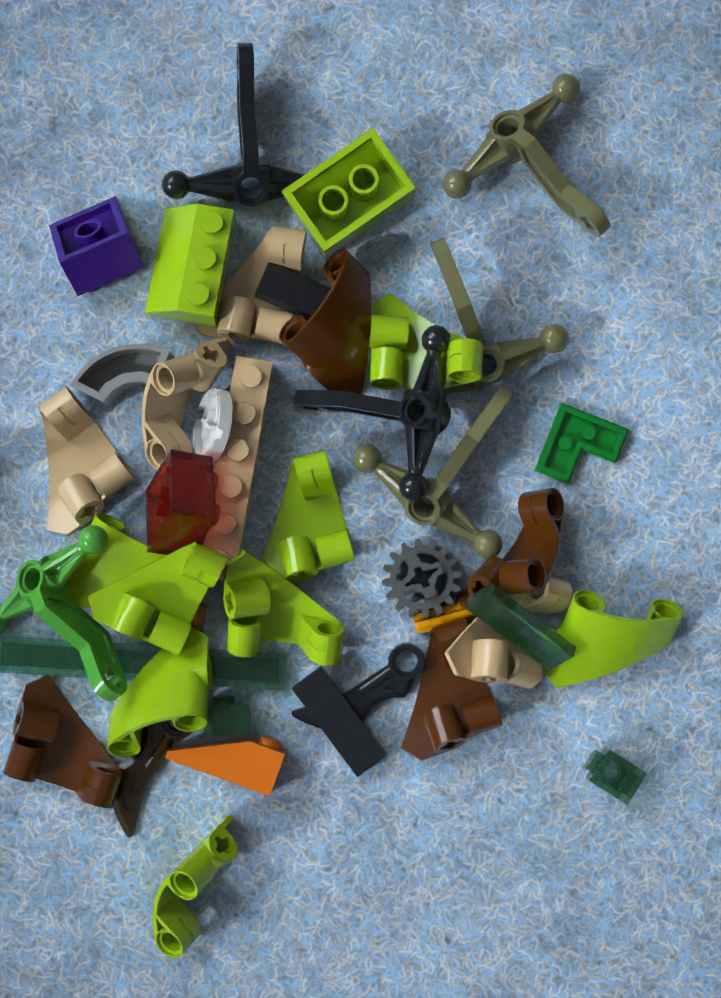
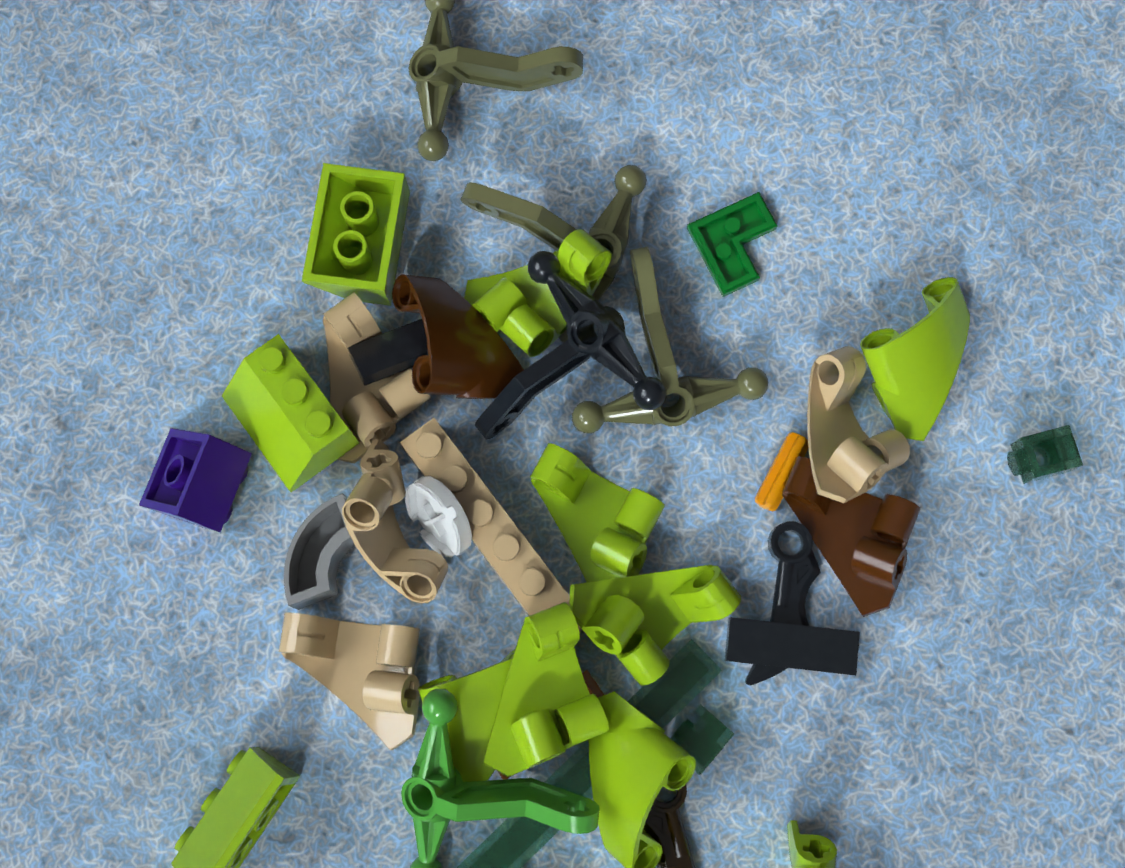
camera: 50 degrees left, 10 degrees down
(181, 502) = (478, 602): clear red brick -> none
(227, 181) = (250, 321): black piece -> none
(240, 761) = (751, 765): orange slope -> none
(429, 593) = (747, 470): dark grey gear -> none
(520, 627) = (850, 413): clear green tile -> none
(534, 553) = (796, 358): reddish brown panel -> none

